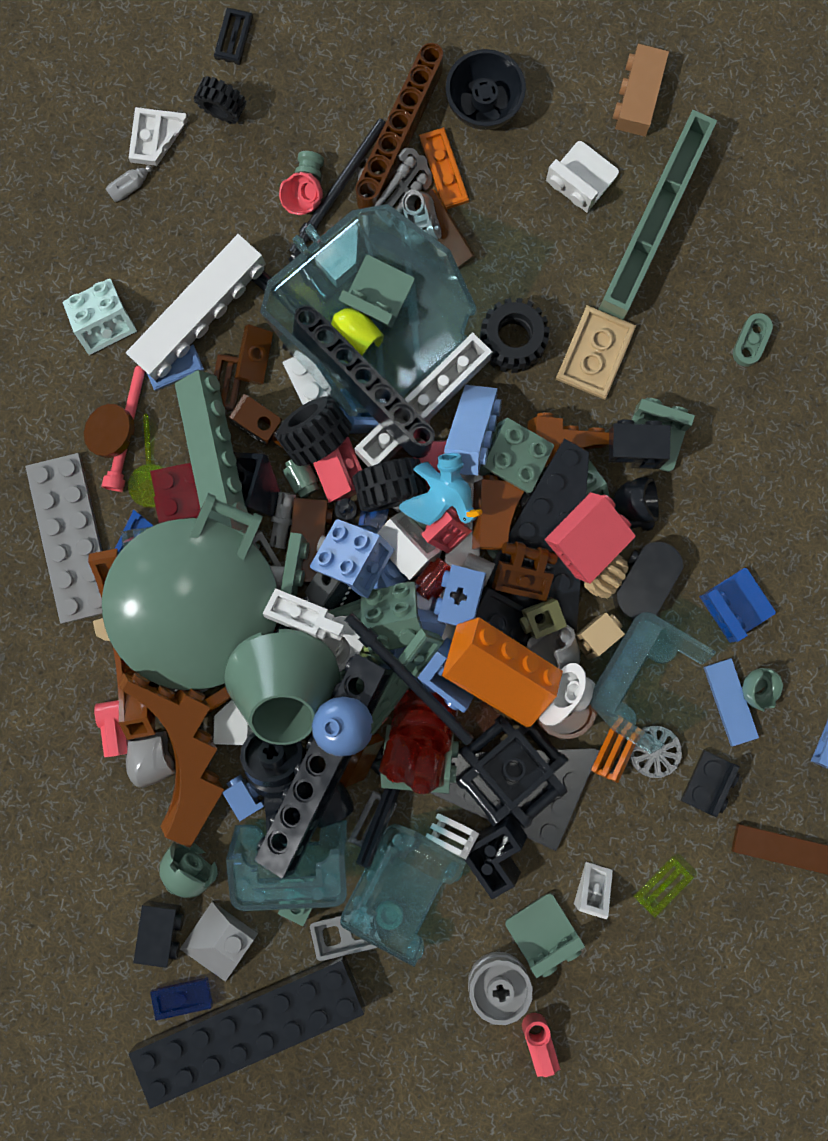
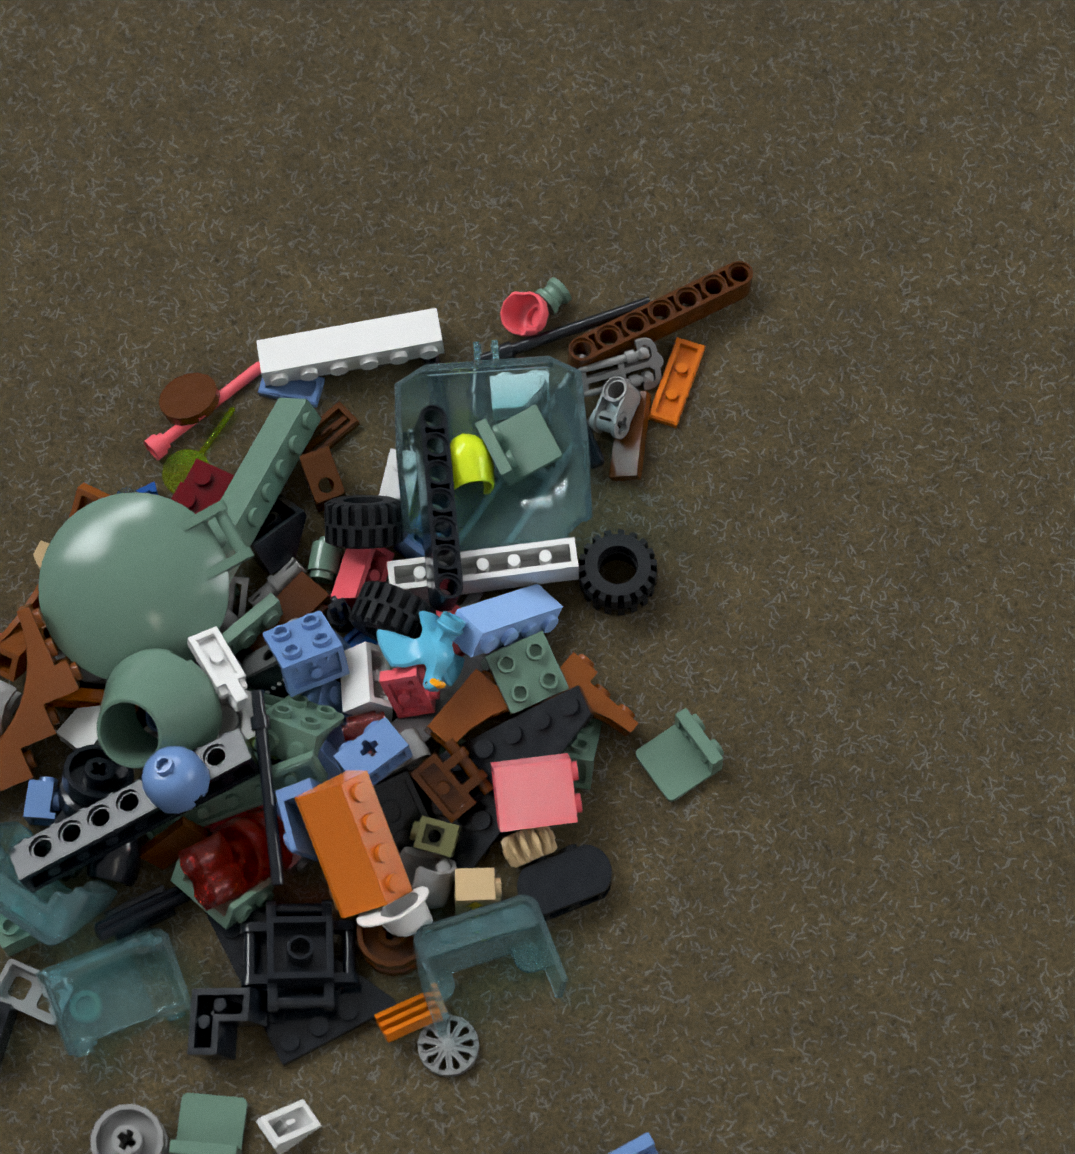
camera: 40 degrees right, 15 degrees down
(67, 534) = (84, 455): light grey plate -> none
(98, 317) = (260, 295): light aqua bracket -> none
(127, 183) = (380, 200): light grey piece -> none
(154, 134) = (437, 174): white wing -> none
(219, 100) = (517, 184): black tyre -> none
(228, 56) = (583, 147): black tile -> none
(253, 354) = (369, 424): reddish brown plate -> none
(439, 829) = (196, 965): white tile -> none
(485, 77) = (762, 322): black piece -> none
(582, 175) = (798, 476): white bracket -> none
(595, 352) = (686, 644): tan tile -> none
(638, 502) = (612, 805): black piece -> none
(640, 89) = (915, 437): medium nougat brick -> none
(640, 444) = (651, 746): black brick -> none
(657, 215) = (837, 559): sand green brick -> none
(711, 784) = (475, 1113): black bracket -> none
(731, 702) = (556, 1054): medium blue tile -> none
(737, 605) = (634, 968): blue bracket -> none
(752, 341) = (842, 737): sand green plate -> none
(756, 681) = (594, 1052): sand green hair -> none

